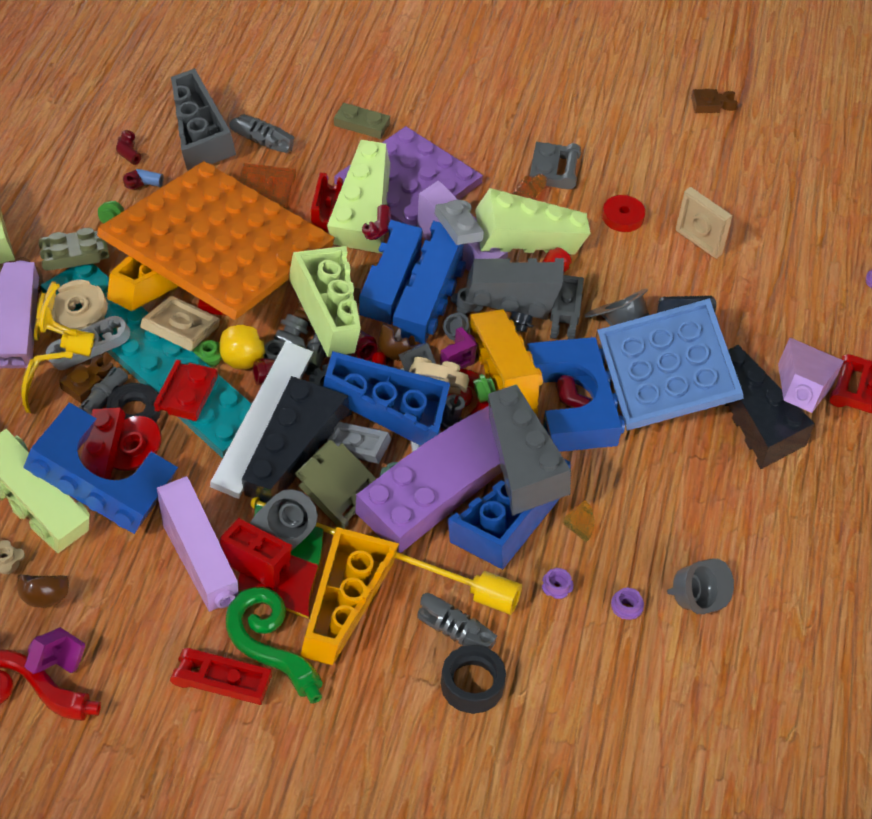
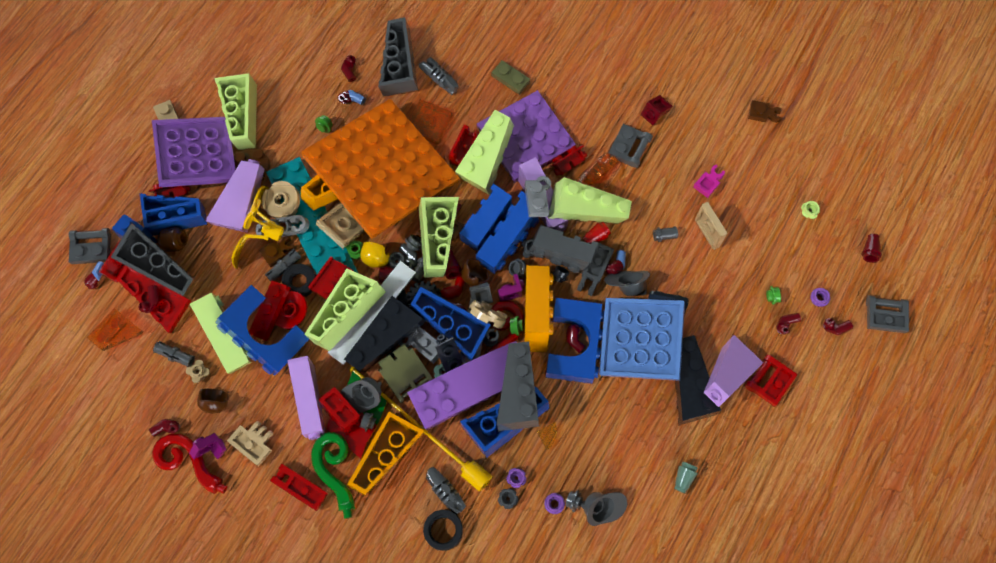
camera: 20 degrees right, 20 degrees up
(72, 249) = (290, 148): olive plate -> none
(124, 633) = (252, 442): none -> tan hinge
(221, 412) = (343, 308): none -> yellowish green wedge
(305, 558) = (368, 421): none -> dark grey plate
(380, 227) = (485, 185): dark red arm -> none
(399, 431) = (448, 353): none -> black hinge
(480, 187) = (562, 164): none -> red hinge
(555, 606) = (508, 493): none -> dark grey plate
(571, 120) = (655, 109): none -> dark red bracket
(595, 297) = (618, 265): none -> dark red arm
(623, 213) = (666, 191): red piece -> none
(639, 251) = (666, 233): none -> dark grey pin
(655, 590) = (574, 500): none -> dark grey plate
(676, 182) = (708, 182): none -> dark pink plate
(800, 523) = (685, 477): none -> sand green cone
(819, 288) = (773, 295): none -> bright green plate
(821, 188) = (810, 205): none -> yellowish green plate
(848, 316) = (785, 322): none -> dark red arm

